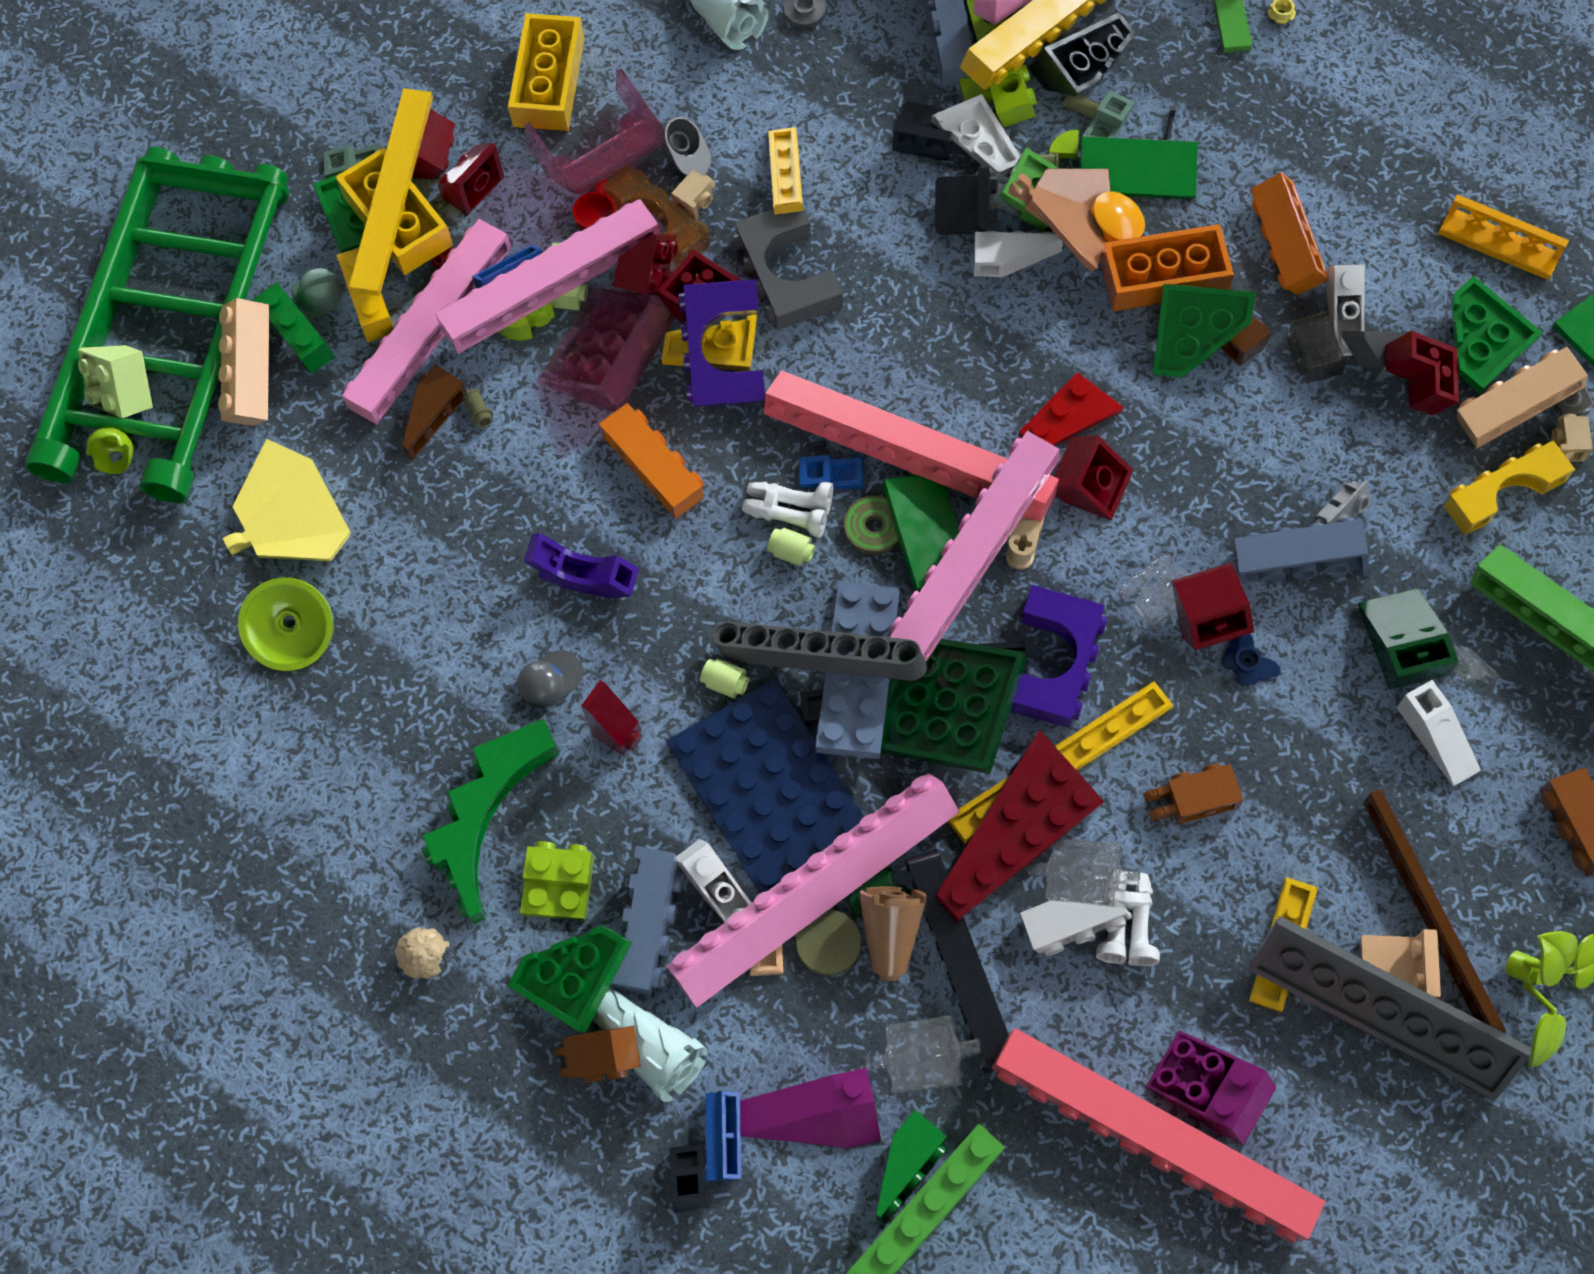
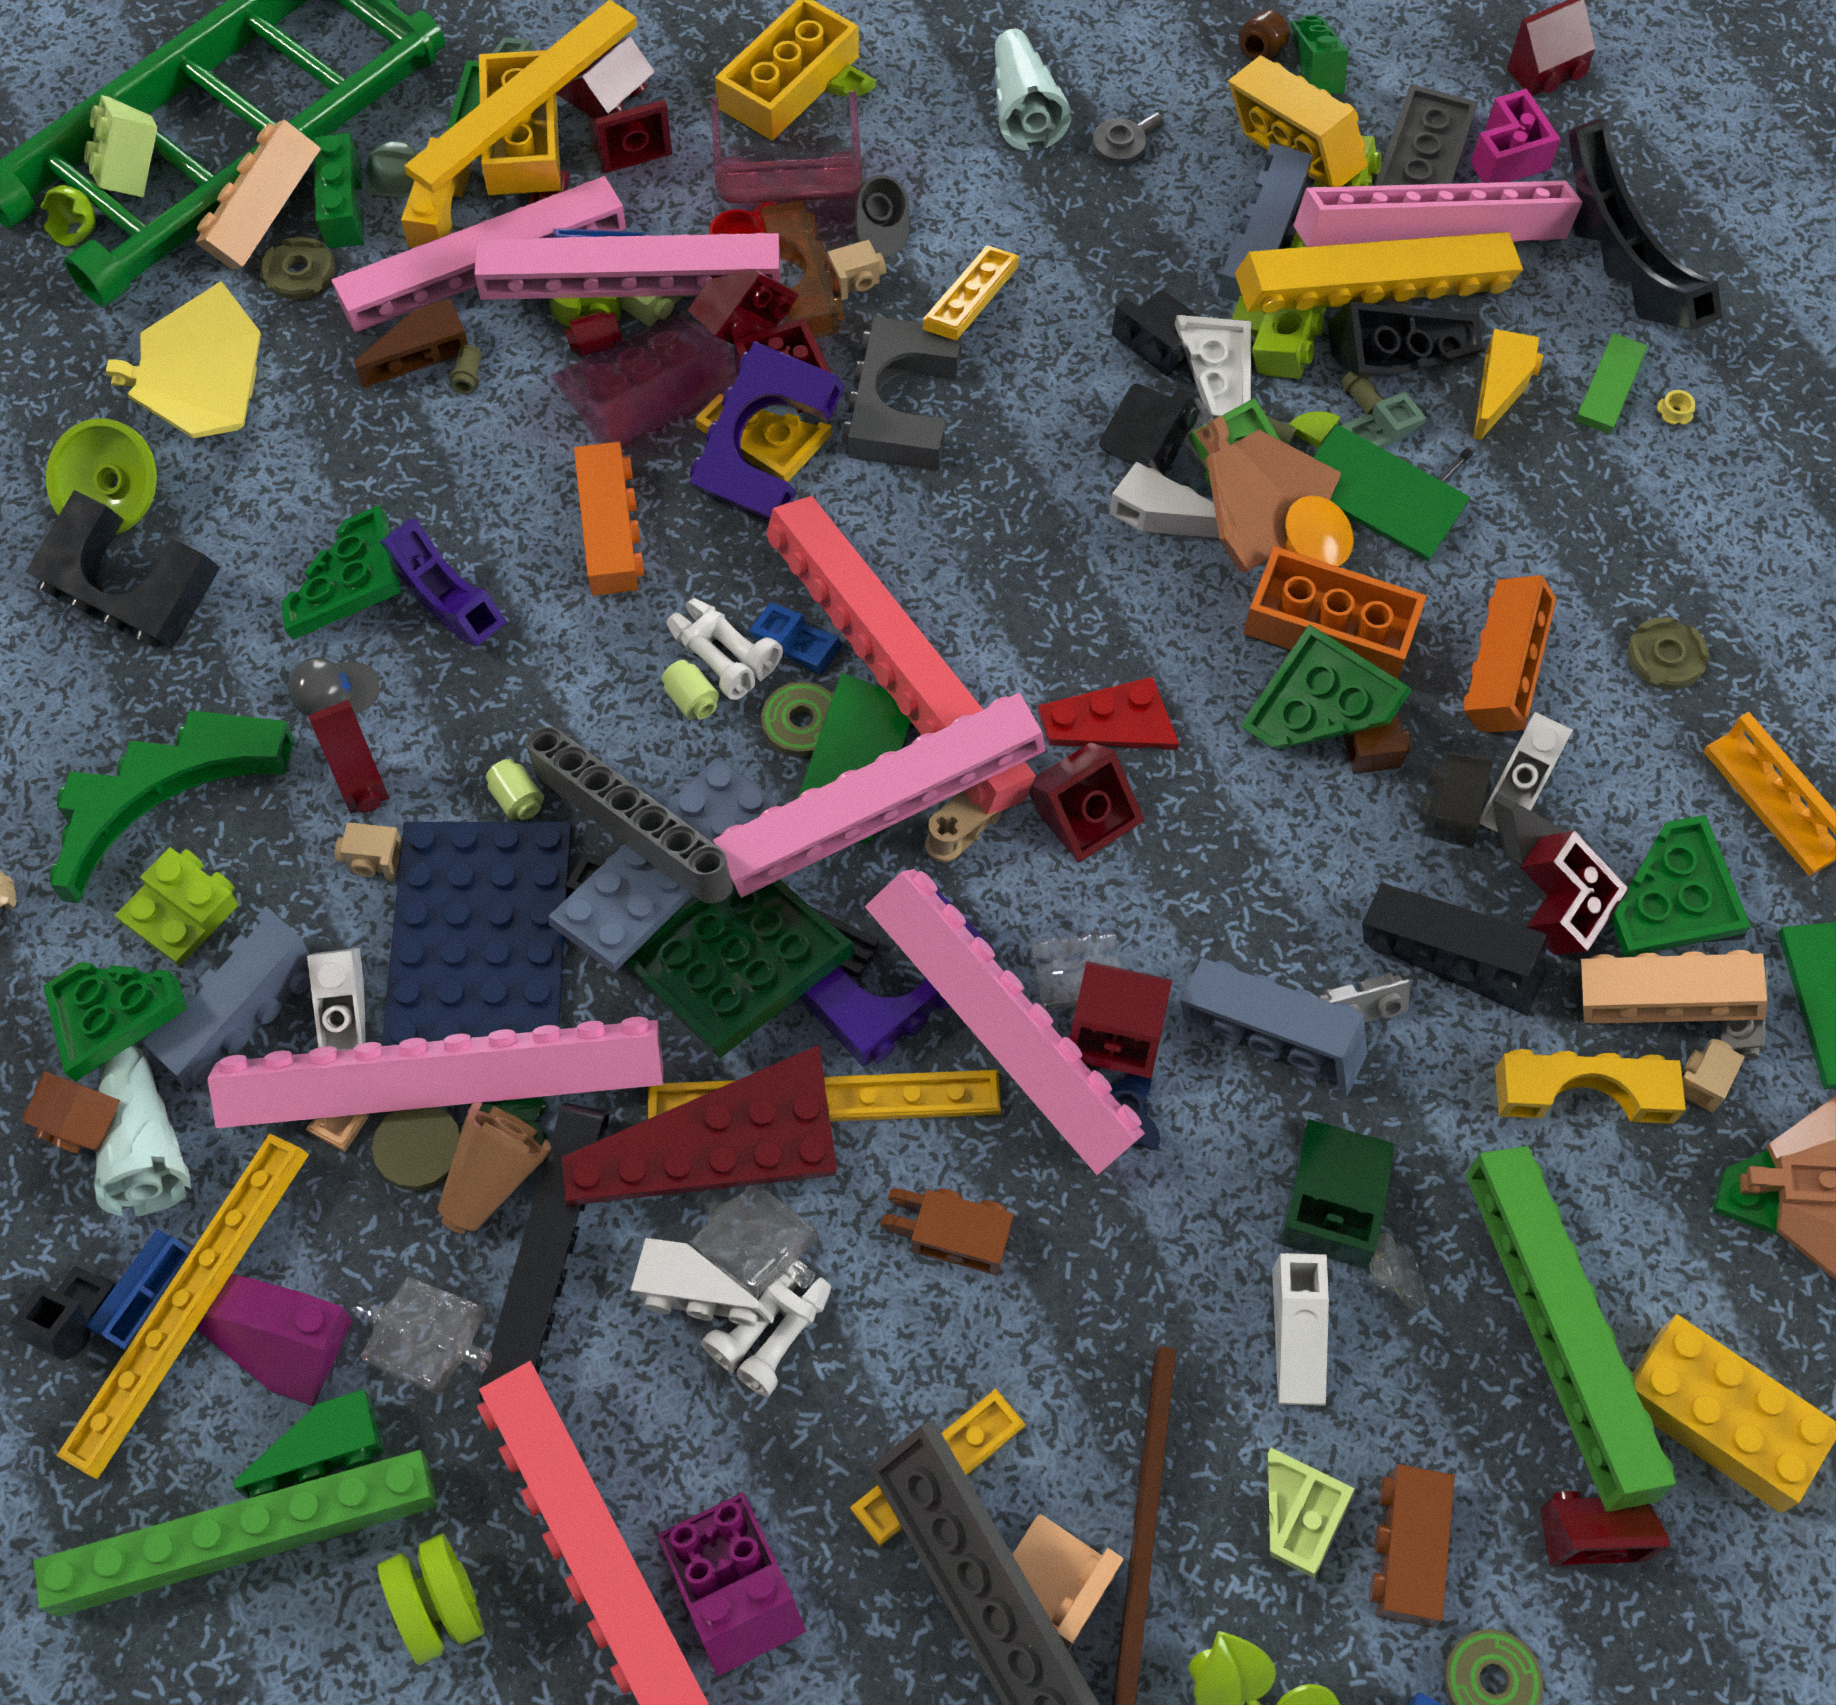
camera: 25 degrees right, 5 degrees down
(308, 413) = (300, 284): none -> olive tile
(391, 696) = (155, 609): none -> black arch
(504, 597) = (345, 578): none -> green plate
(548, 335) = (593, 333): none -> dark red brick
(592, 59) = (851, 80): none -> lime tile
(659, 772) = (370, 850): none -> tan brick
(758, 1129) = (182, 1307): none -> yellow tile
(1049, 1206) = (423, 1601): none -> lime wheel
(1147, 646) = (1005, 1019): none -> bright pink brick
(1162, 40) = (1506, 374): none -> yellow slope
(1369, 180) = (1660, 662): none -> olive tile
(1379, 442) = (1458, 945): none -> black wedge
(1509, 841) = (1303, 1512): none -> yellowish green wing

